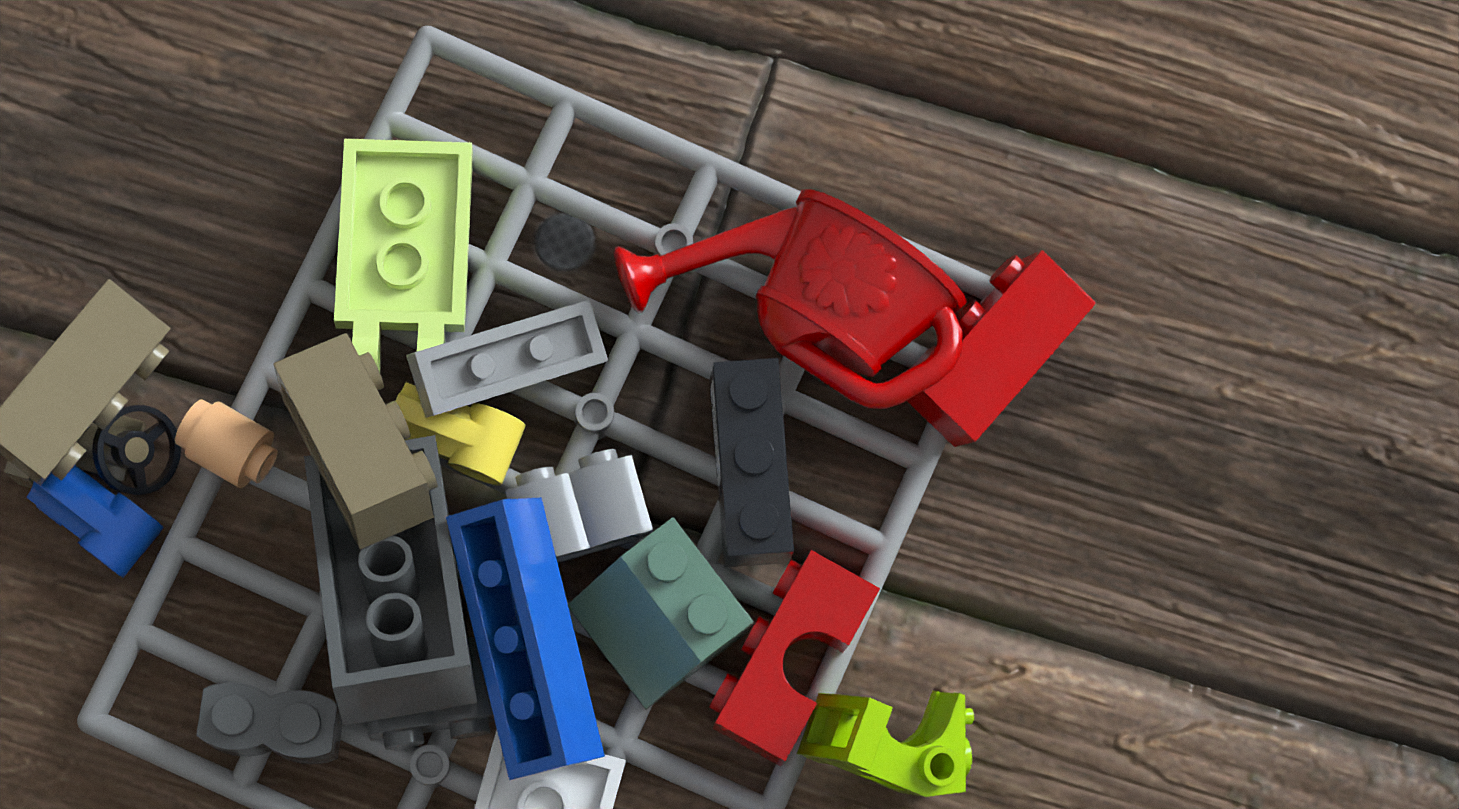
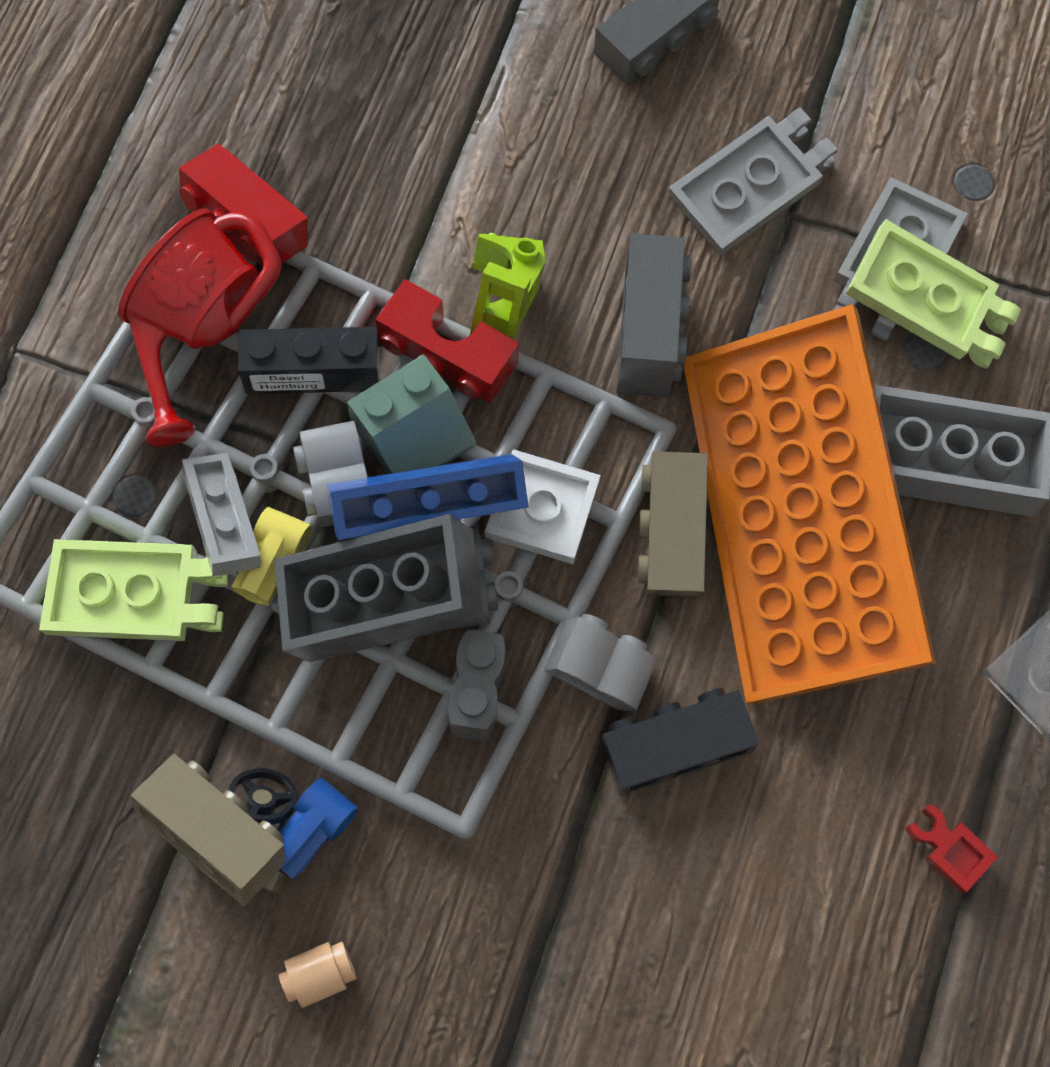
camera: 85 degrees left, 5 degrees down
(226, 443) = (265, 717): light nougat brick -> none
(356, 439) = (274, 605): dark tan brick -> none

